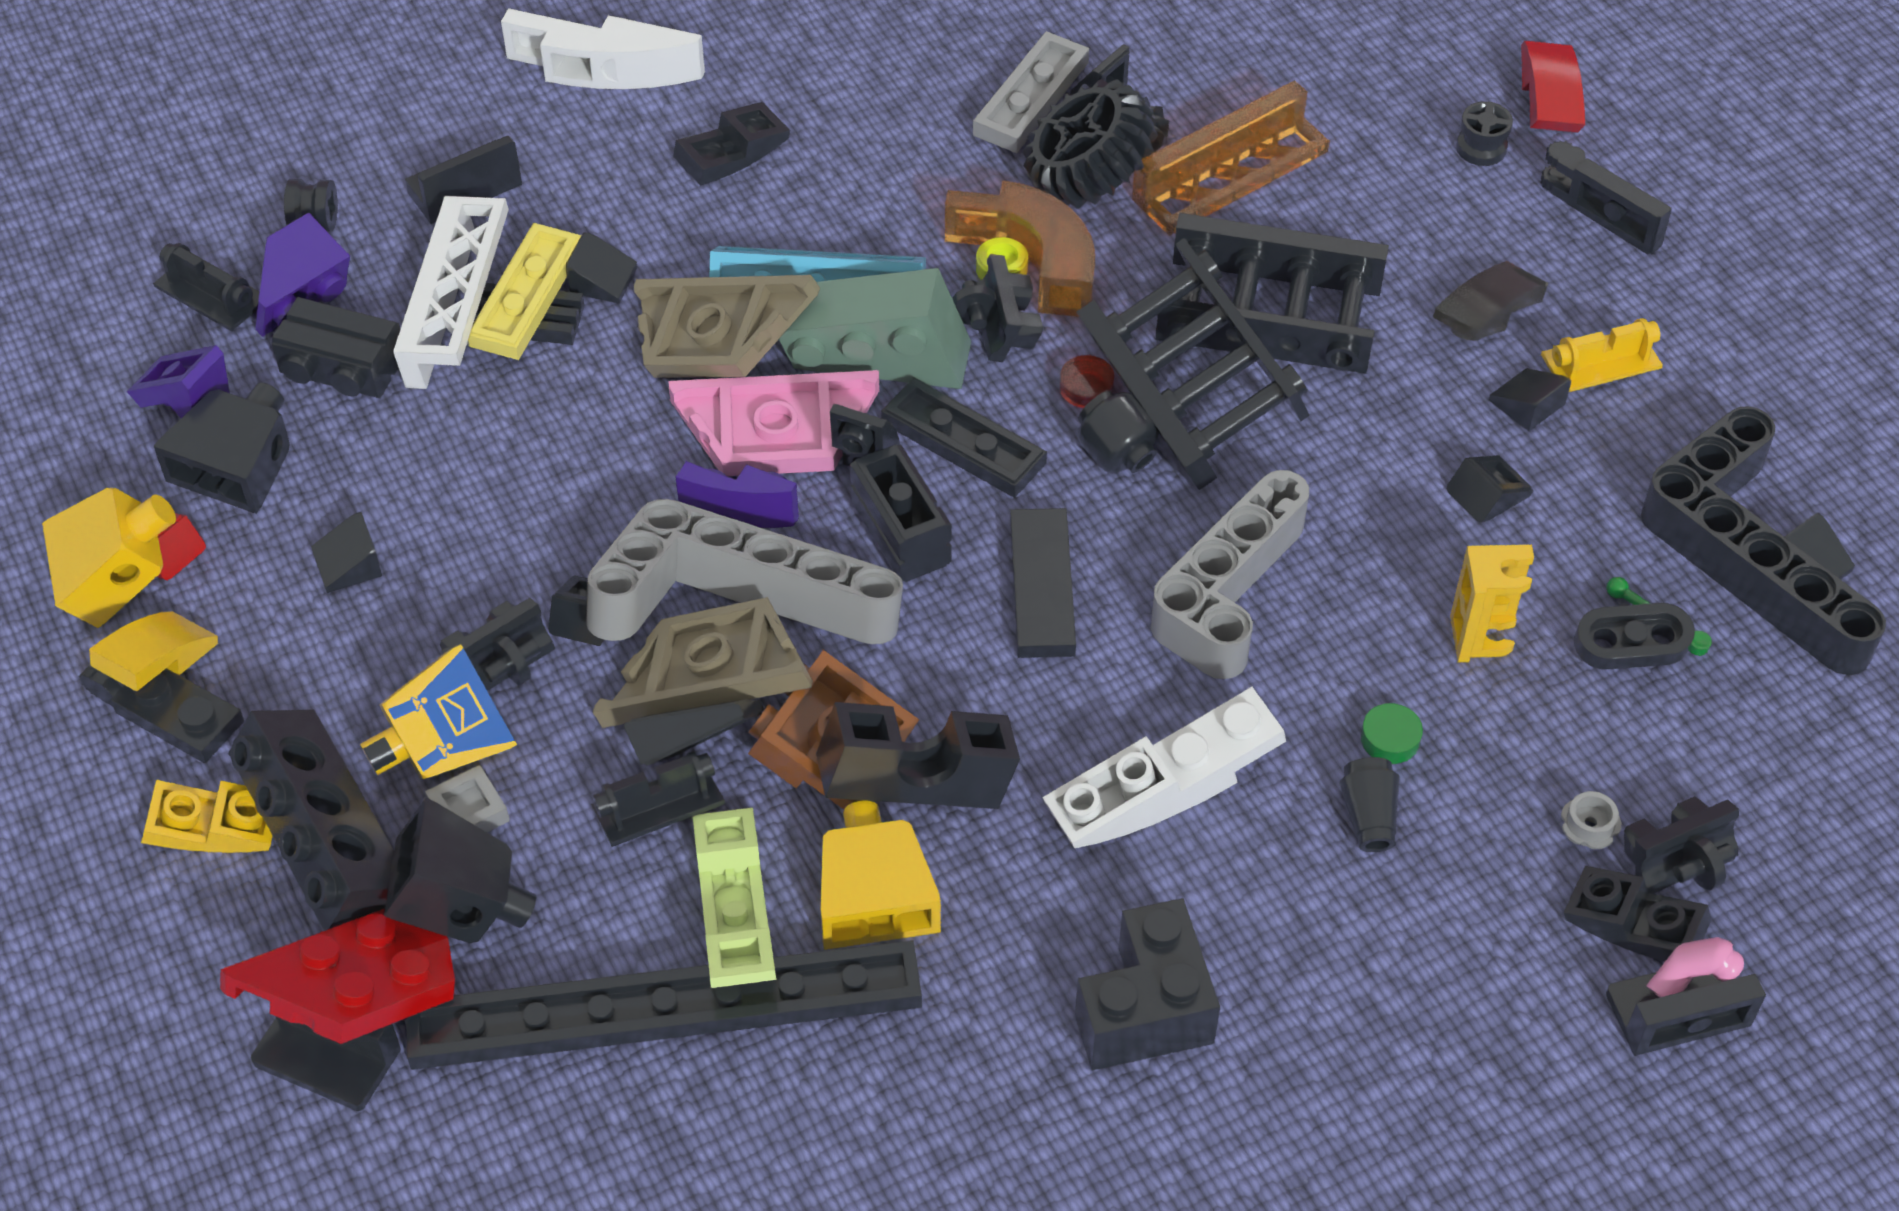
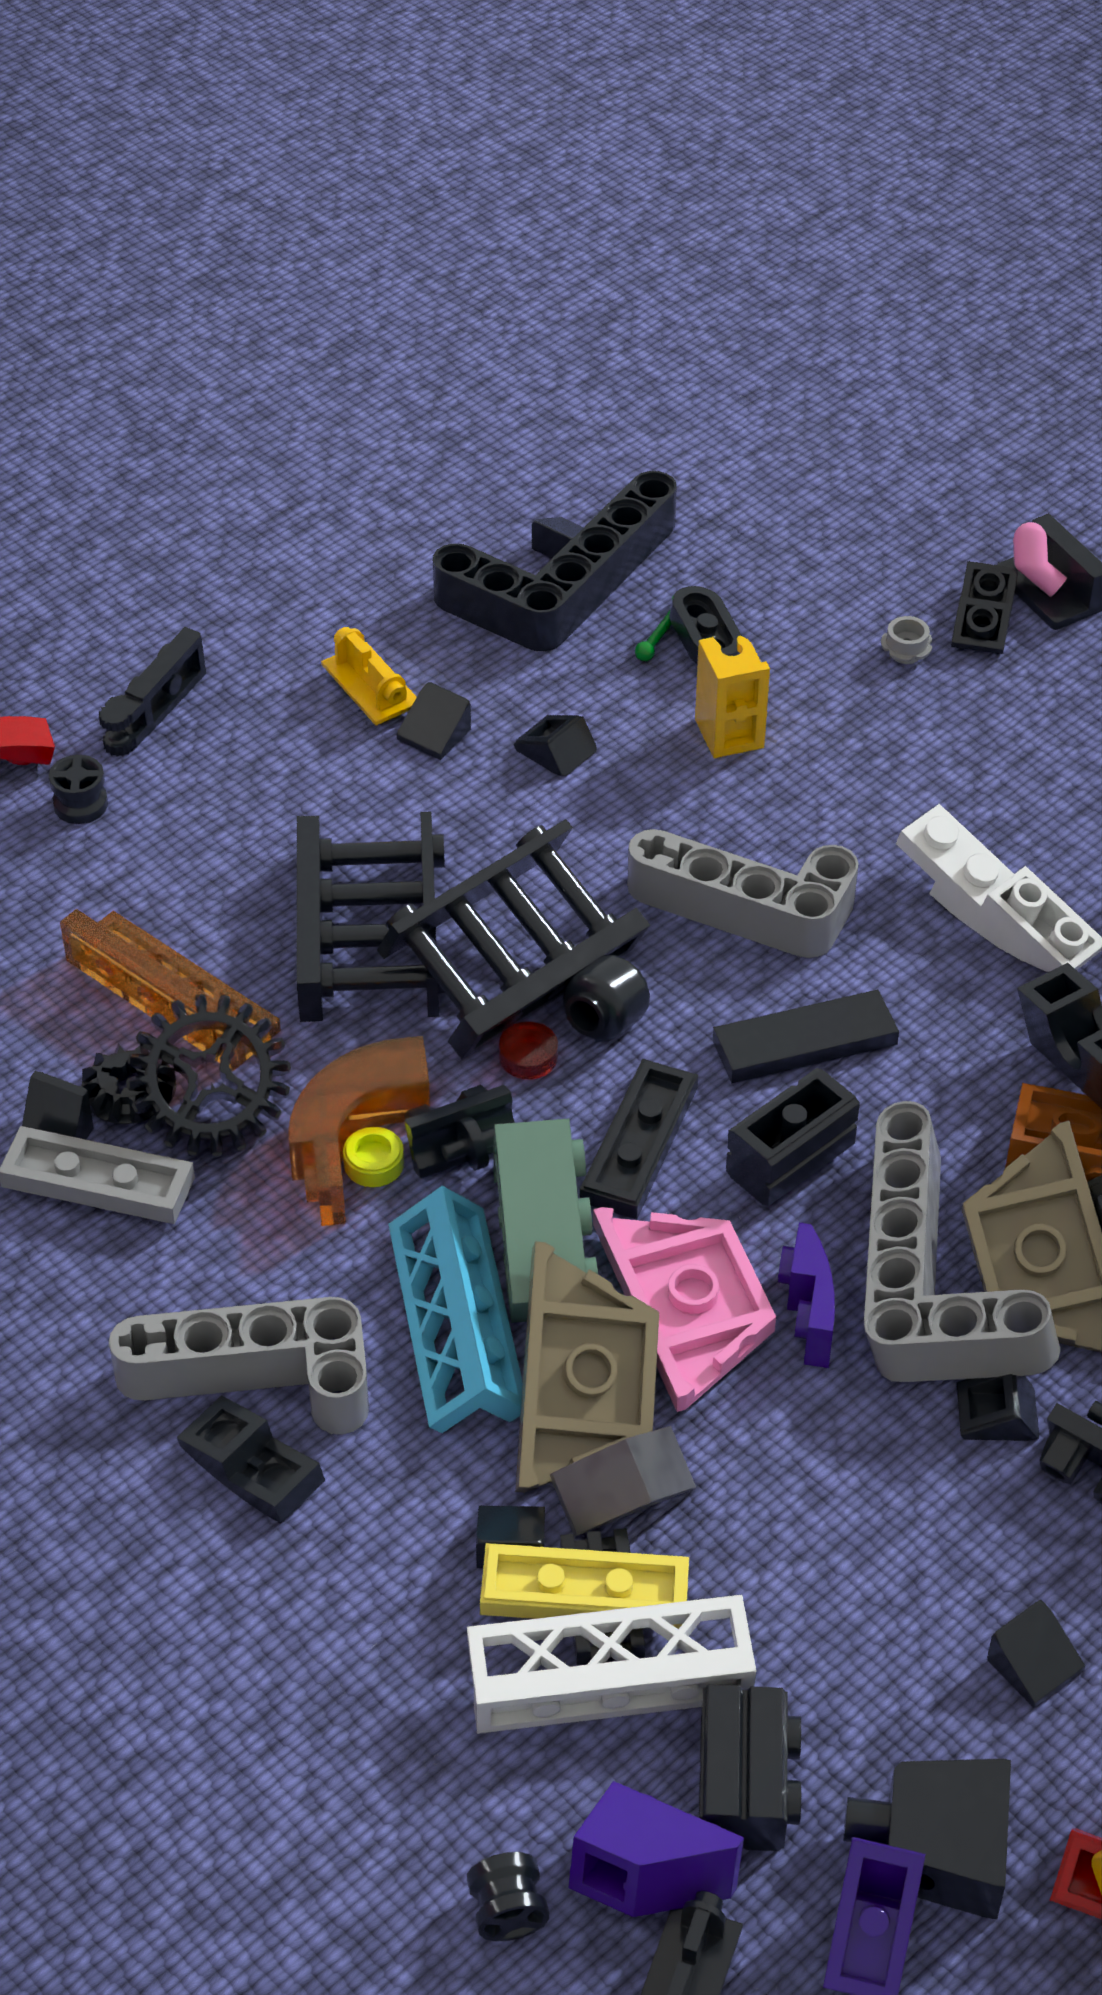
camera: 105 degrees left, 5 degrees down
(476, 173) = (398, 1733): black panel -> none
(608, 57) = (126, 1638): white slope -> none
(610, 343) = (622, 1479): none -> flat silver slope
(809, 187) = (163, 1356): none -> light grey beam
(859, 433) = (719, 1170): black slope -> none
(1372, 801) = (955, 766): black cone -> none
(1391, 732) = (871, 771): green tile -> none
(1487, 299) = (330, 755): clear smoke slope -> none
(1688, 848) = (919, 574): black hips -> none

